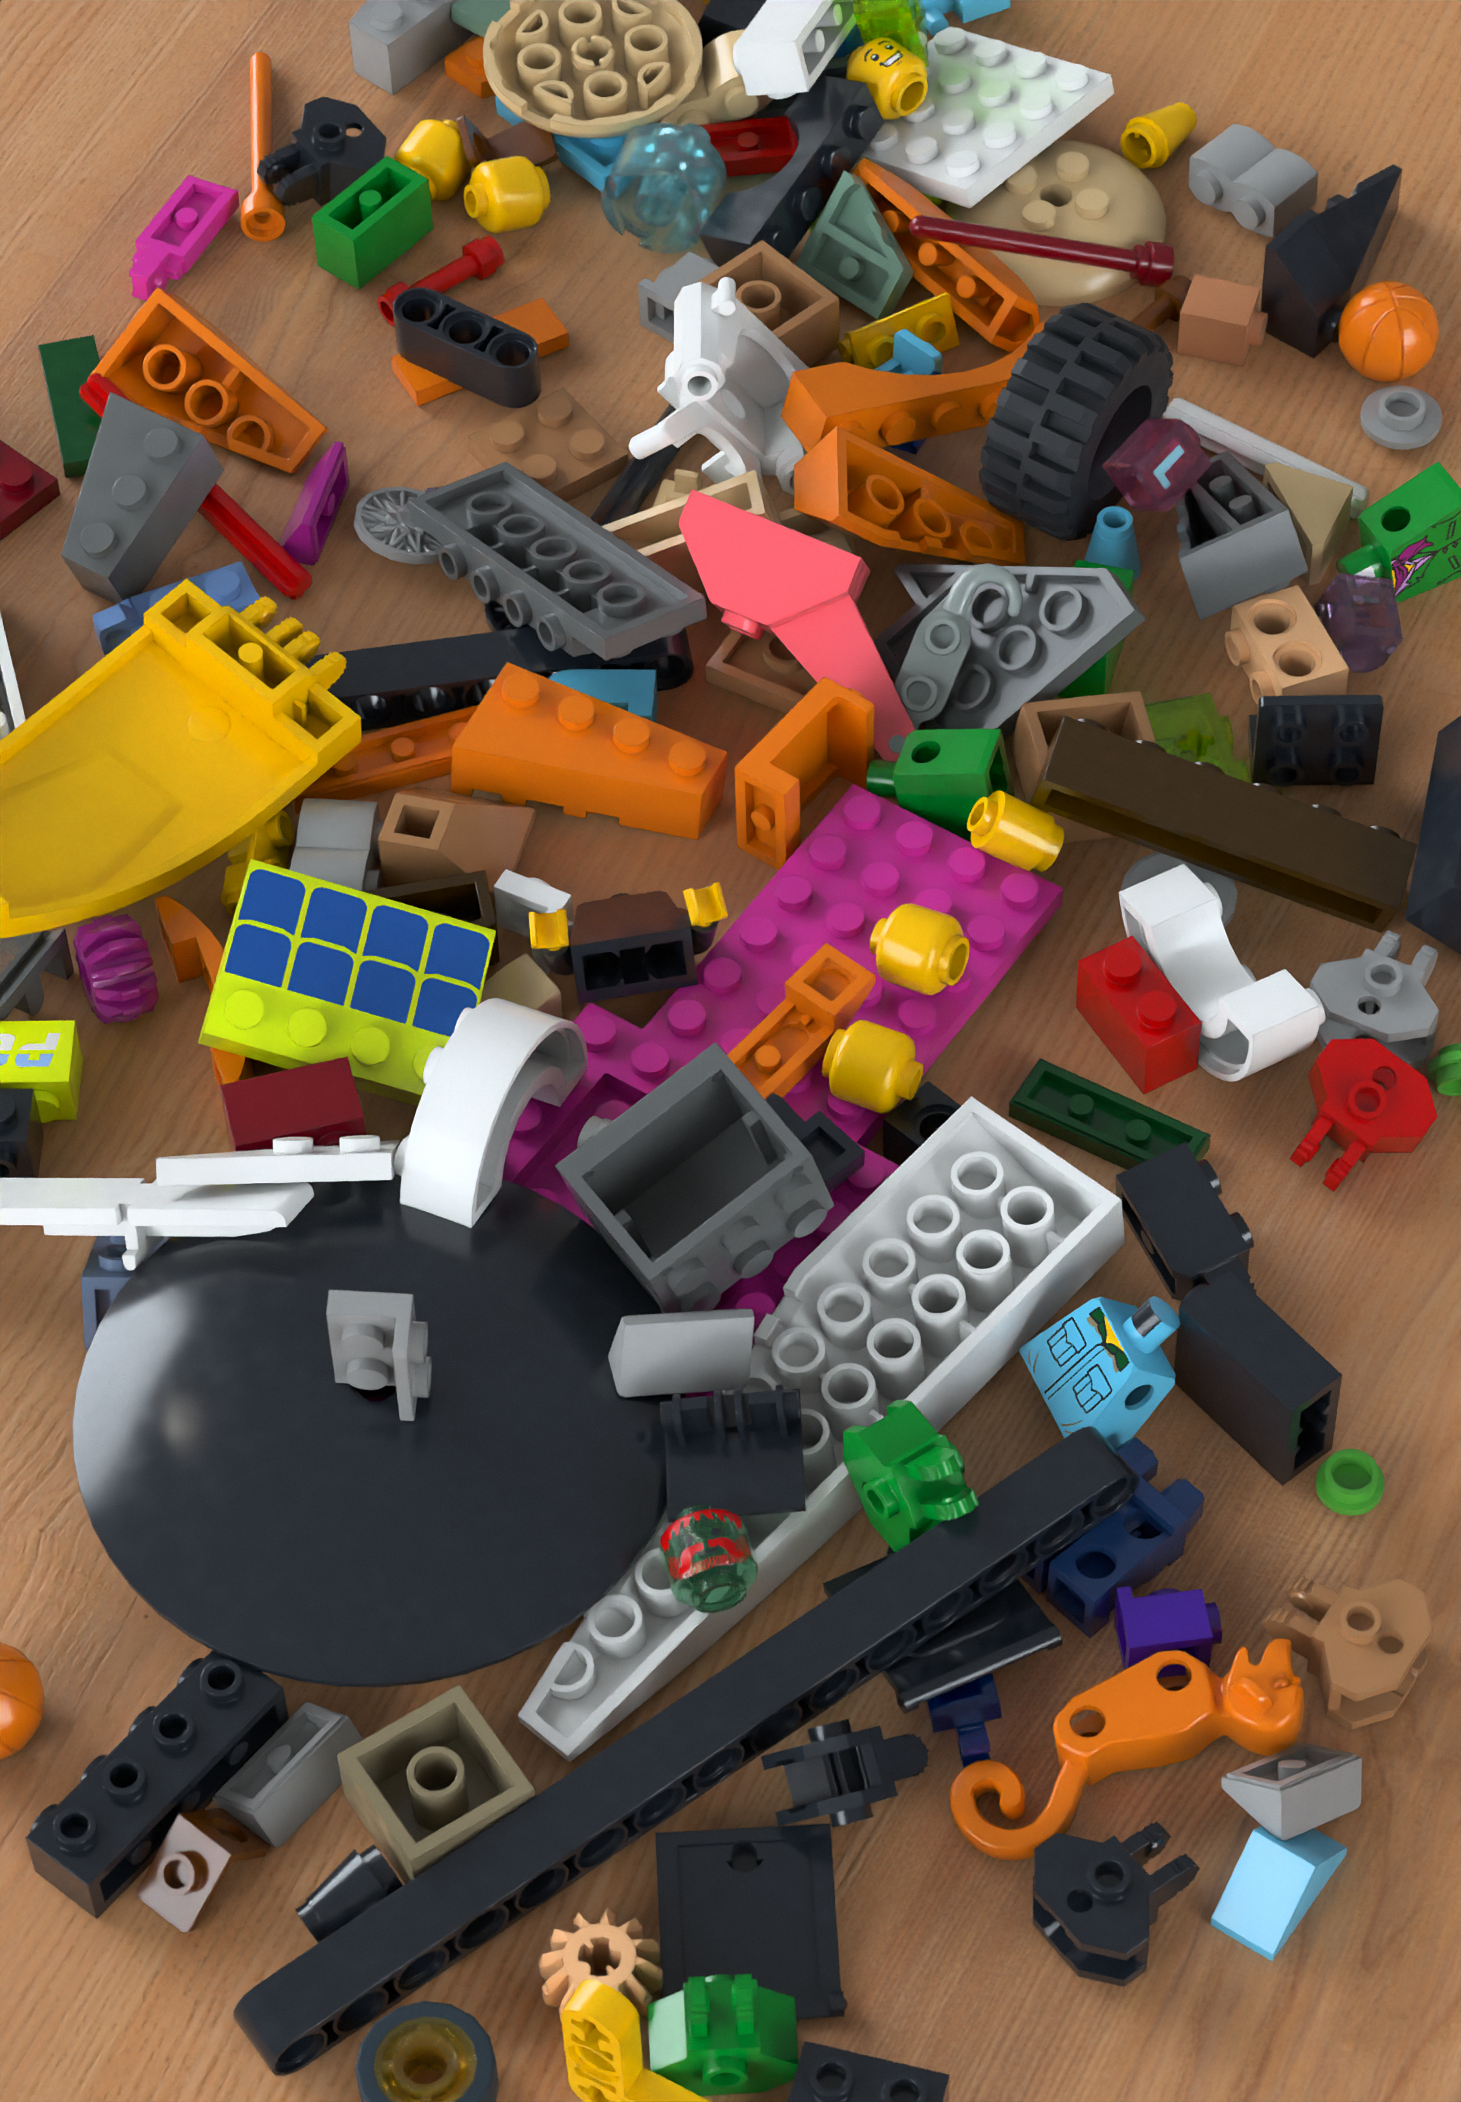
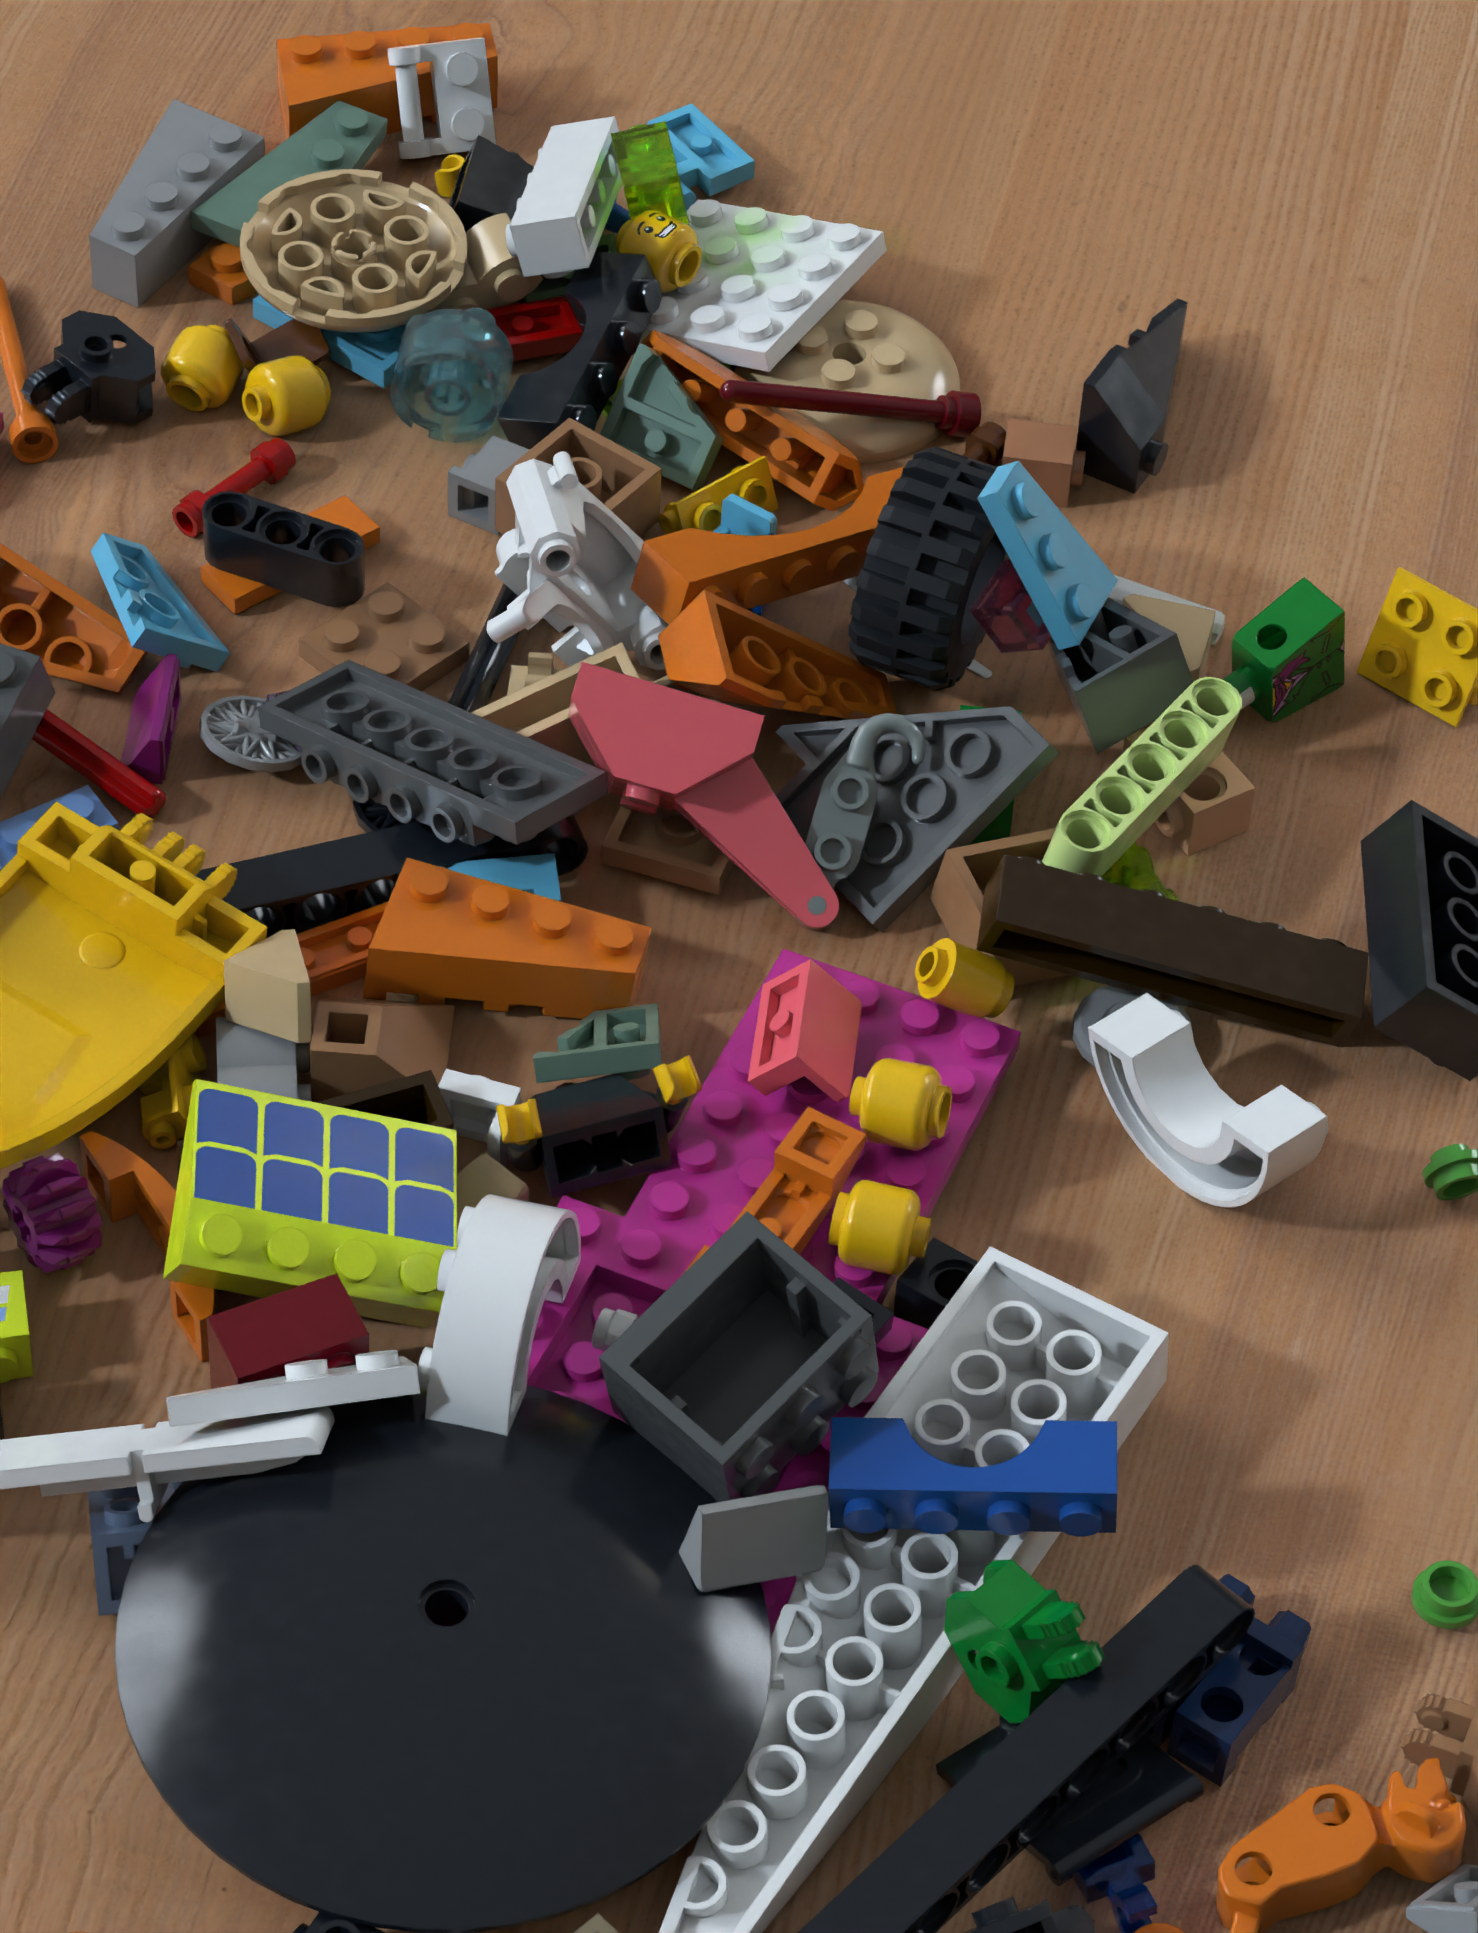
camera: 15 degrees left, 5 degrees down
(336, 394) = (153, 607): none -> medium azure wing
(354, 774) = (270, 988): none -> tan slope
(372, 222) = (155, 433): green brick -> none
(380, 1345) = (458, 1562): light grey bracket -> none
(665, 860) = (606, 1042): none -> sand green wing
(708, 1558) = (829, 1749): clear green head -> none
(735, 1452) = (830, 1638): black hinge -> none
(810, 746) = (744, 907): orange panel -> none
(849, 869) = (806, 1030): none -> coral panel
(944, 774) = (877, 930): green torso -> none
(976, 1333) = (1054, 1485): none -> blue arch
(1099, 1118) = (1119, 1265): dark green tile -> none
(1104, 1366) = (1185, 1504): medium azure torso -> none
(1115, 541) = (989, 681): medium azure cone -> none
(1138, 1014) = (1124, 1150): red brick -> none
(1156, 135) = (931, 289): yellow cone -> none
(1165, 1623) = (1296, 1760): dark purple brick -> none
(1178, 419) = (1048, 554): none -> medium azure wing
(1182, 1221) = (1234, 1365): black hinge -> none
(1231, 652) = (1145, 779): none -> yellowish green beam
(1252, 180) = (1037, 325): light grey brick -> none
(1256, 1377) = (1336, 1497): black brick -> none
(1315, 740) = (1238, 859): black bracket -> none
(1359, 1111) = (1374, 1218): red hinge -> none
(1361, 632) = (1261, 743): clear purple brick -> none
(1380, 1000) = (1368, 1118): light grey hinge -> none
(1388, 331) = (1210, 459): orange piece -> none
(1400, 417) = (1237, 542): light grey piece -> none

